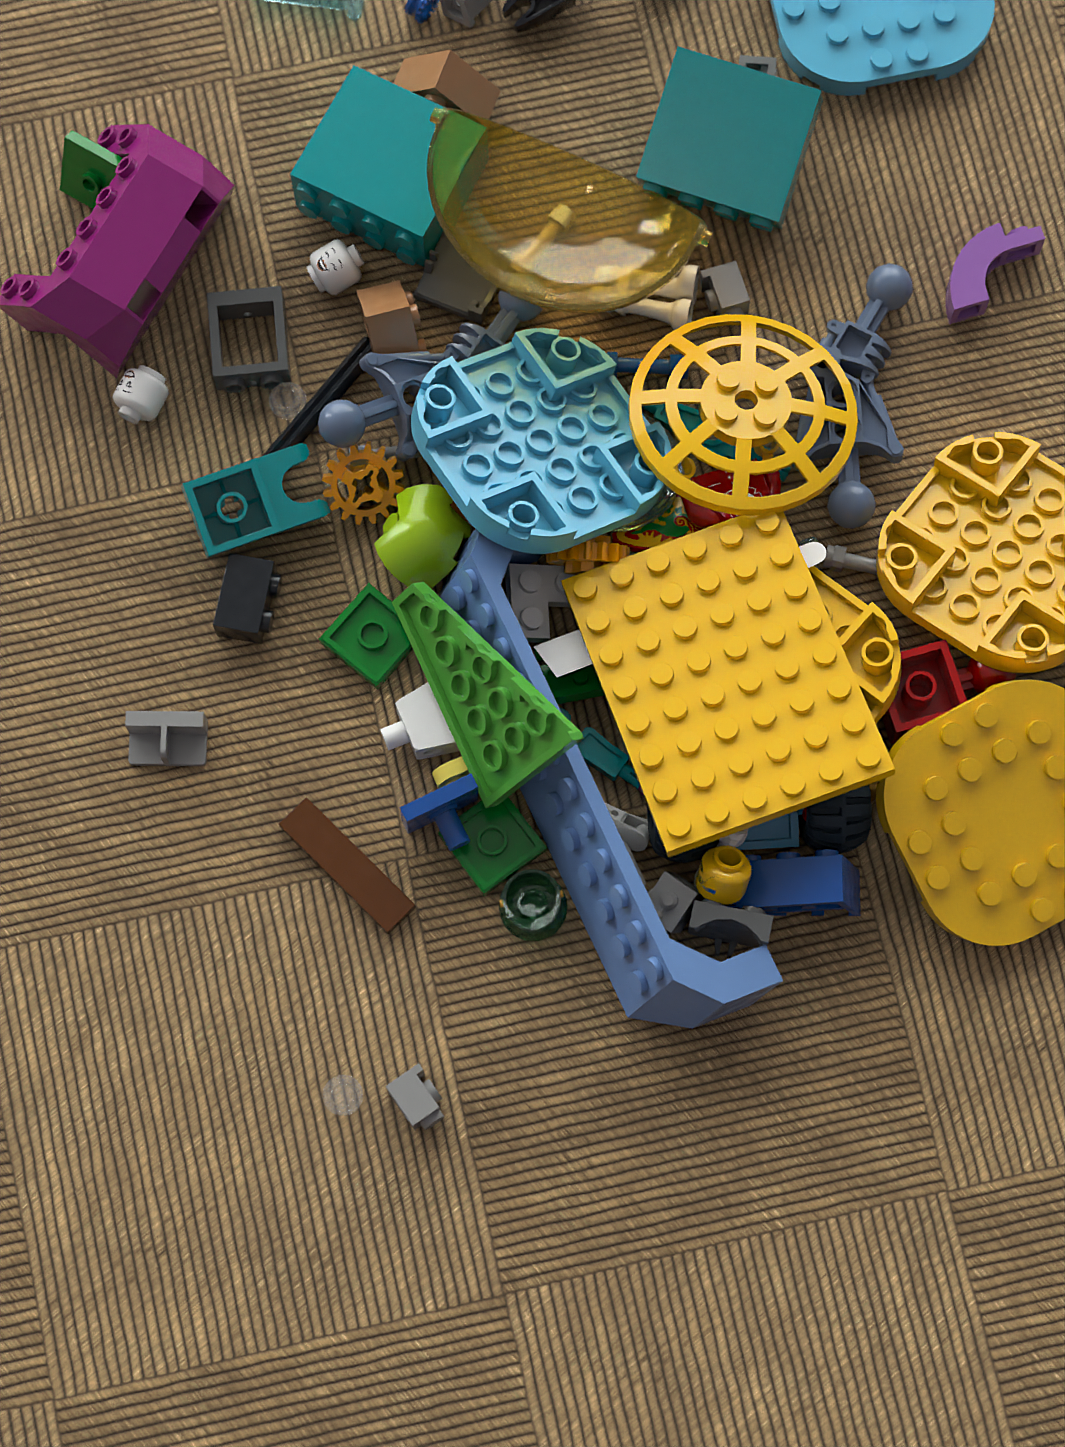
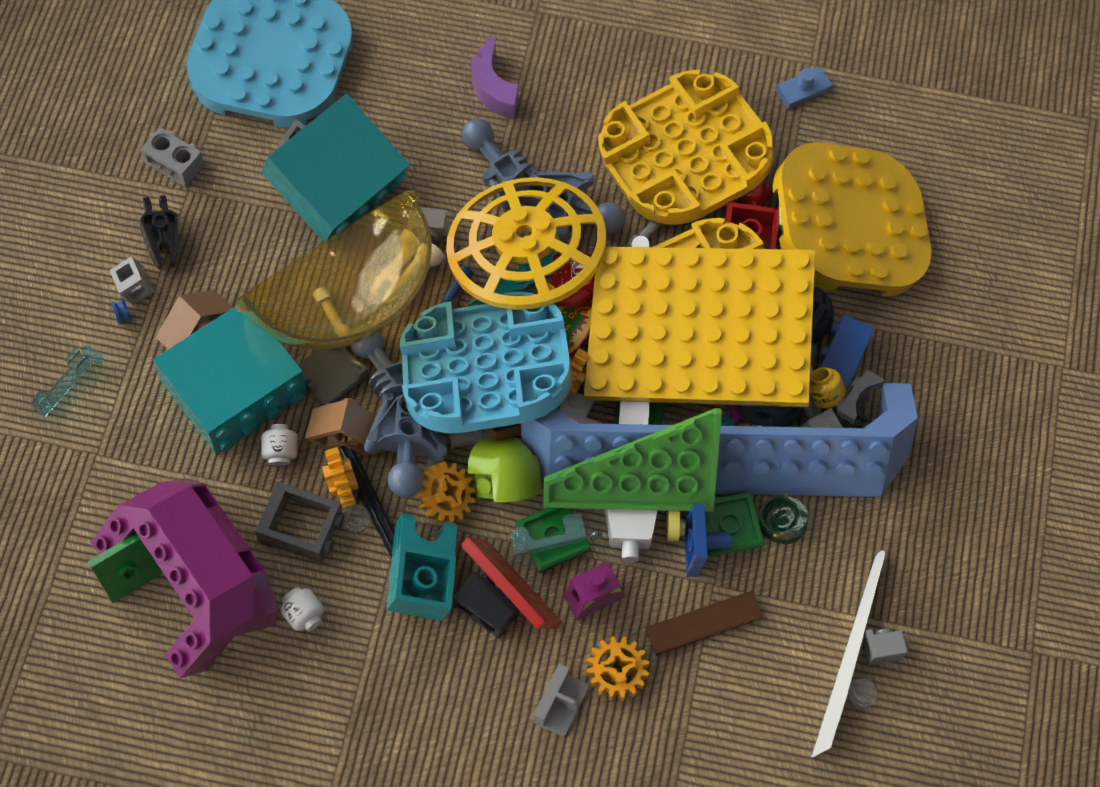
camera: 70 degrees left, 10 degrees down
(247, 776) = (628, 665): none -> light orange gear
(279, 611) = (511, 583): none -> red tile
(319, 352) = (340, 477): none -> light orange gear
(320, 715) = (595, 591): none -> magenta torso
(378, 1061) = (848, 663): none -> white sticker
(383, 655) = (574, 532): none -> clear light blue piece

